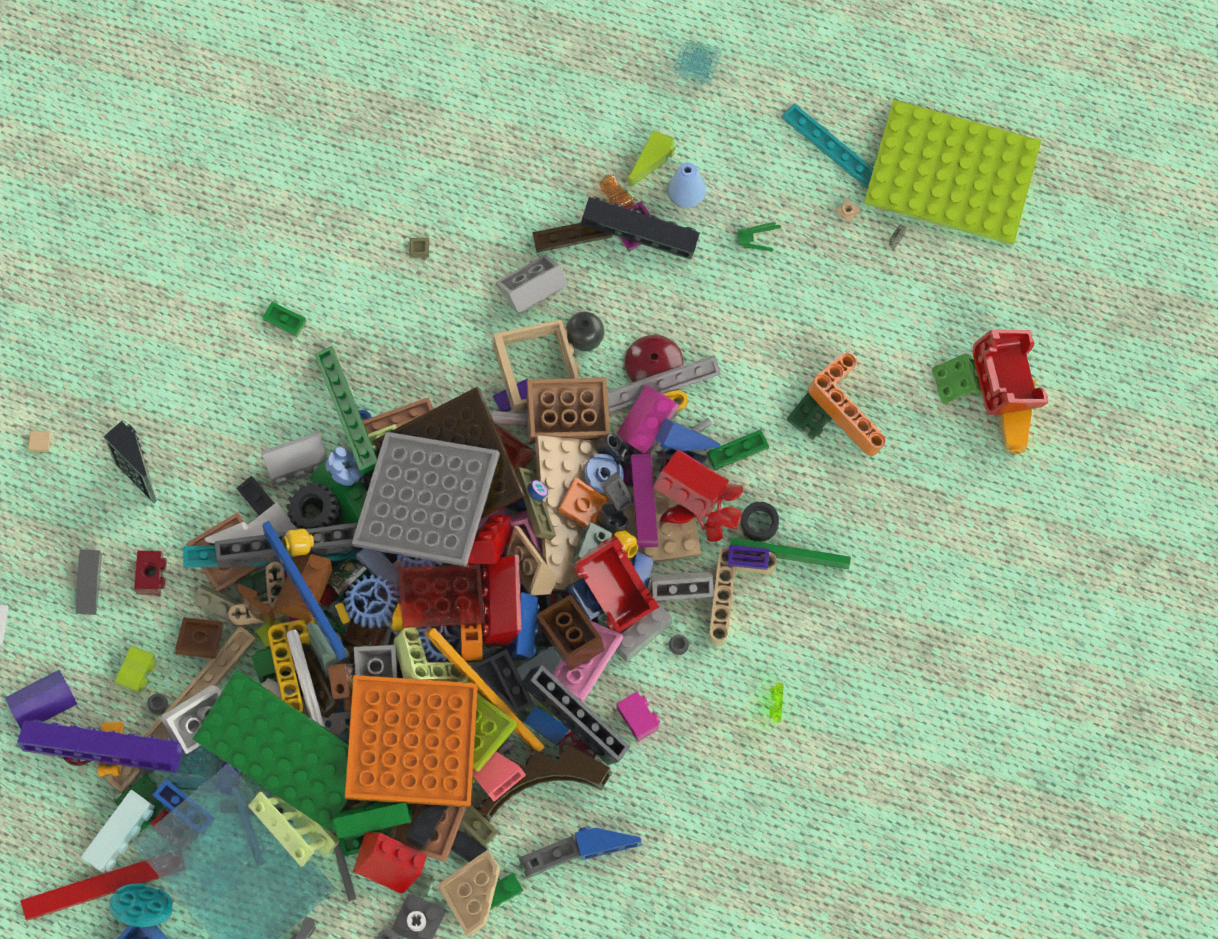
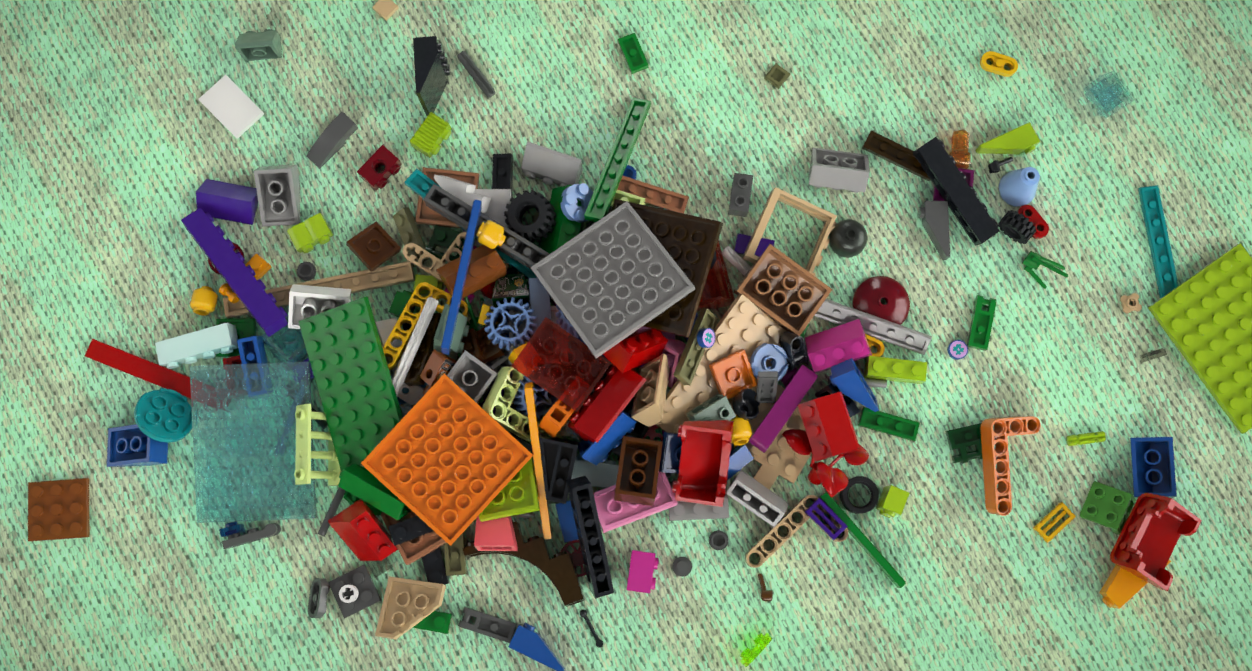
camera: 40 degrees right, 10 degrees up
(81, 660) = (278, 194): none -> light grey slope
(91, 794) = (203, 301): none -> yellow head
(165, 436) = (476, 74): none -> dark grey axle
(170, 514) = (430, 135): none -> lime brick
(252, 602) = (423, 255): reddish brown slope -> none
(469, 363) = (740, 195): none -> dark grey brick
(590, 102) = (998, 62): none -> yellow plate
(646, 266) = (936, 223): none -> dark grey slope
(651, 799) = (599, 643): none -> black hinge
(655, 186) = (994, 167): none -> black hand
(667, 687) = (682, 566): none -> dark grey plate
(674, 565) = (766, 476): none -> tan tile
(707, 403) = (895, 370): none -> lime brick
(711, 219) = (1017, 227): none -> black tyre
(720, 205) = (1036, 219): none -> red plate
(743, 350) = (957, 349): none -> tile
(745, 315) = (981, 323): none -> green plate
(751, 656) = (766, 595): none -> reddish brown hand
(788, 504) = (892, 501): none -> lime brick
(898, 340) = (1086, 438): none -> lime axle
(925, 438) = (1066, 510): none -> yellow tile
(963, 318) = (1153, 466): none -> blue slope

